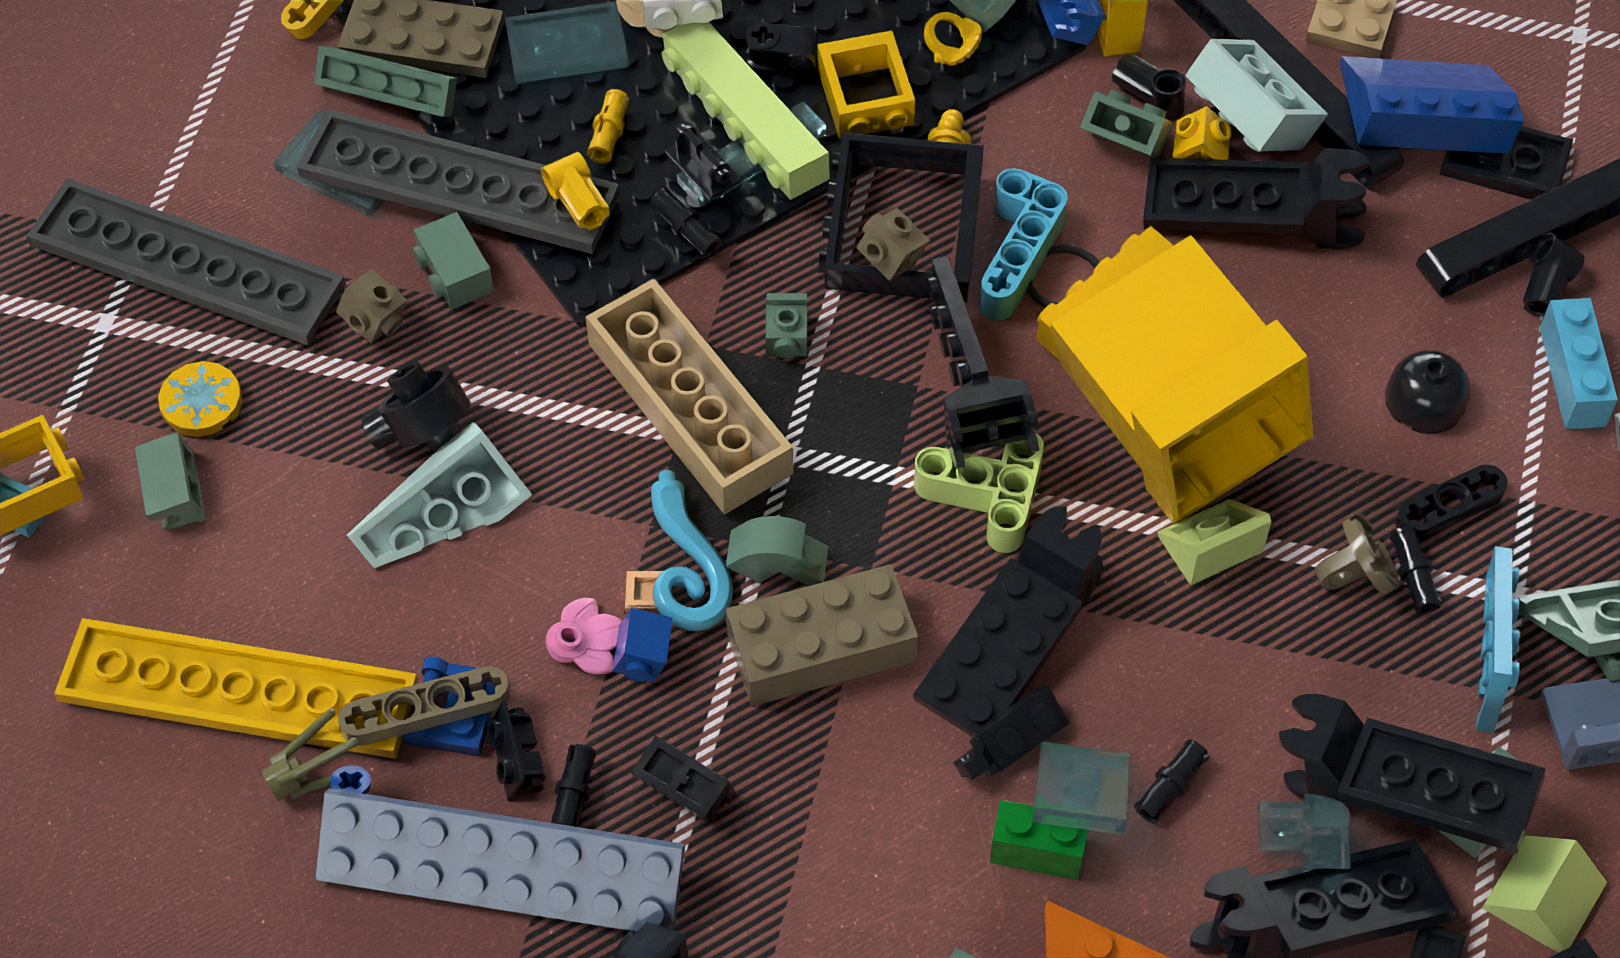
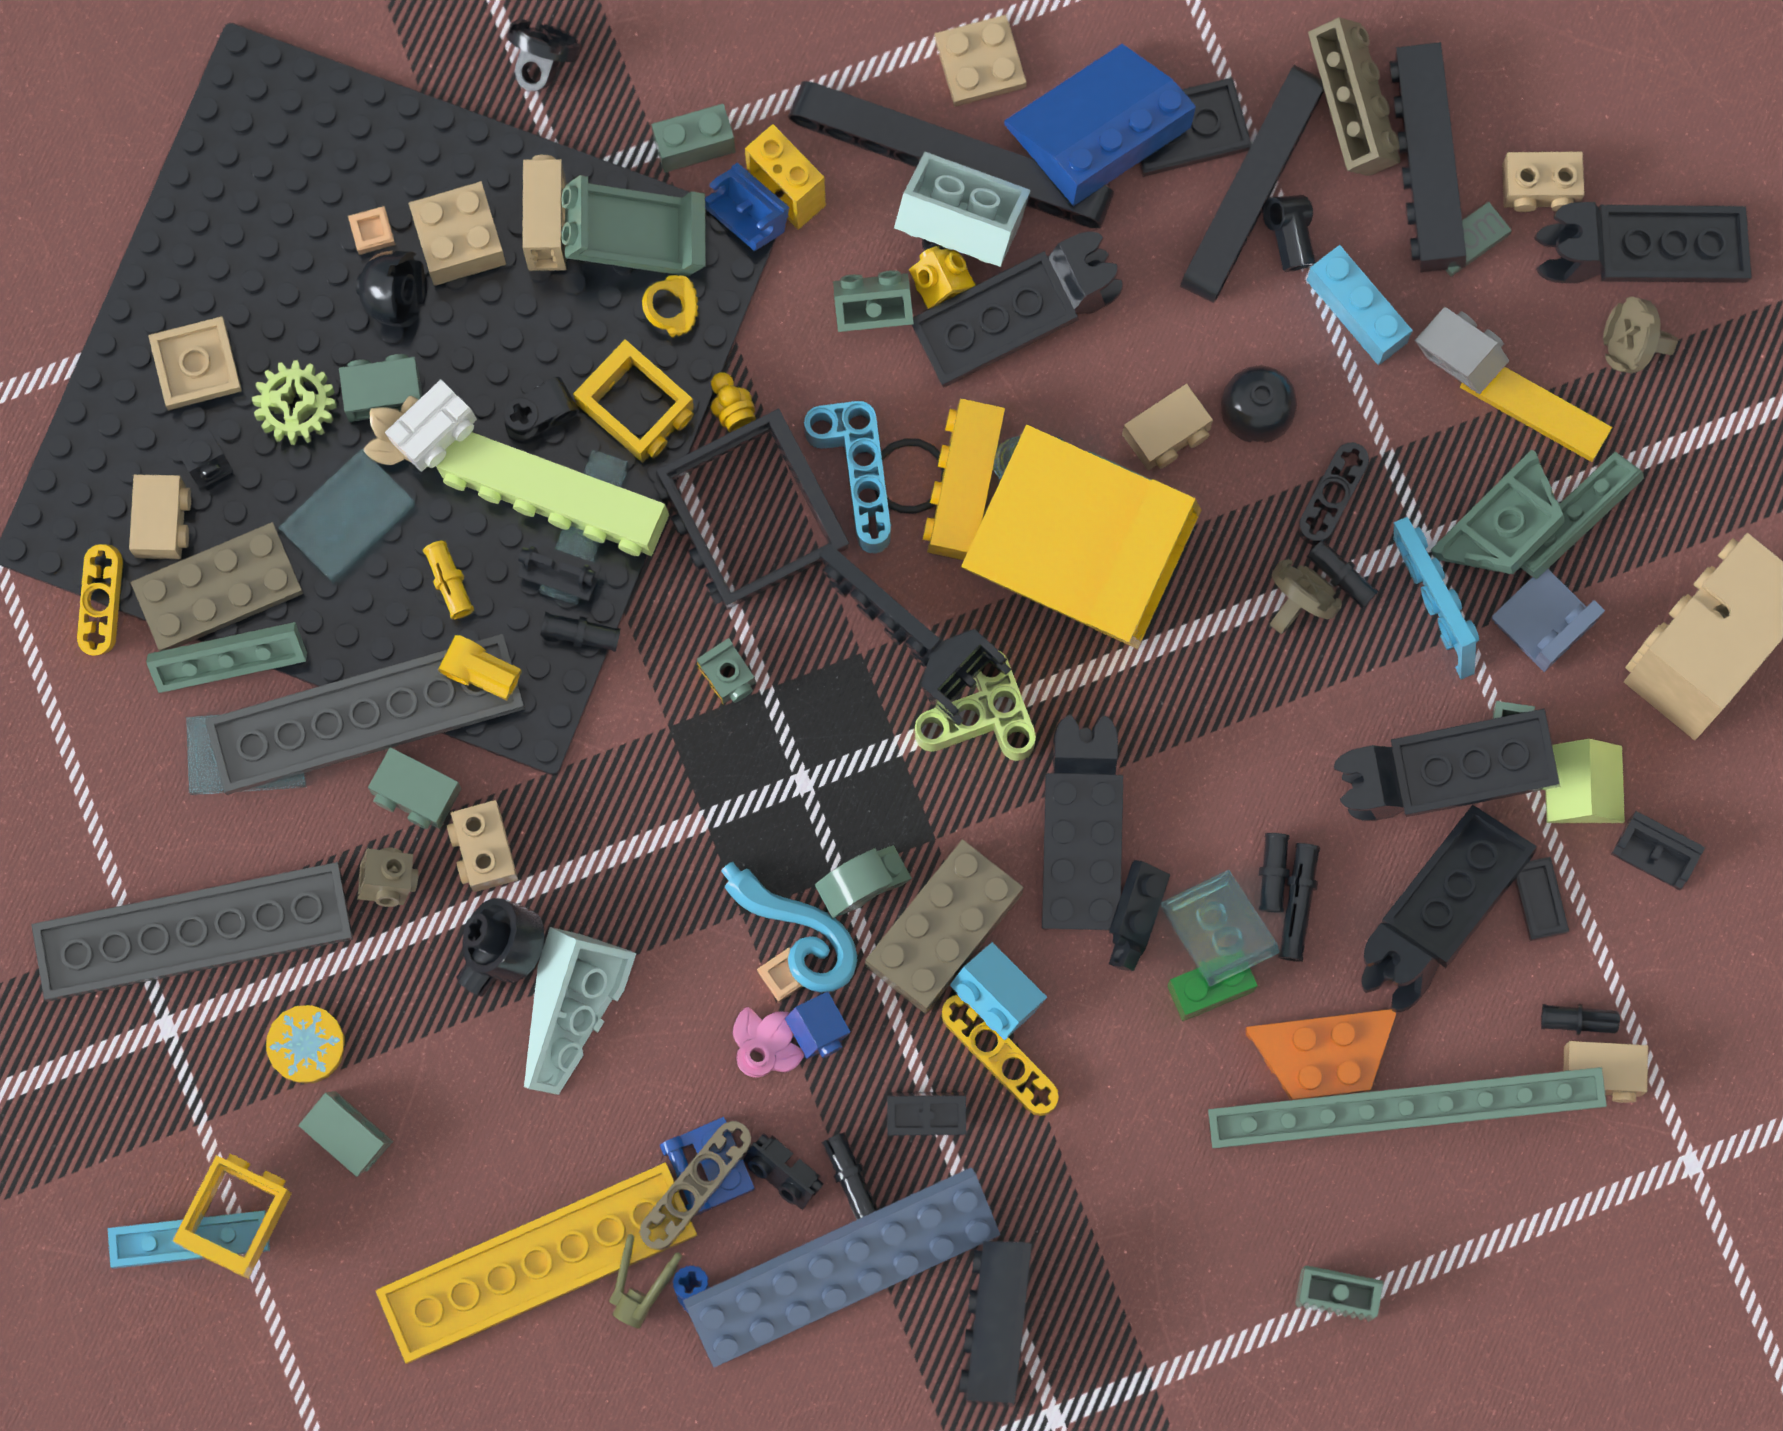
camera: 35 degrees left, 20 degrees up
(473, 335) = (483, 846): none -> tan brick
(690, 396) = (698, 789): tan brick -> none
(792, 779) = (996, 1058): none -> yellow beam
(829, 716) = (998, 991): none -> medium azure brick
(892, 243) = (773, 555): dark tan brick -> none
(1155, 86) = (857, 242): black piece -> none
(1191, 809) = (1301, 885): none -> black pin
(1216, 539) = (1176, 643): yellowish green slope -> none
(1314, 826) = (1401, 845): clear light blue brick -> none
(1337, 359) = (1168, 428): none -> tan brick

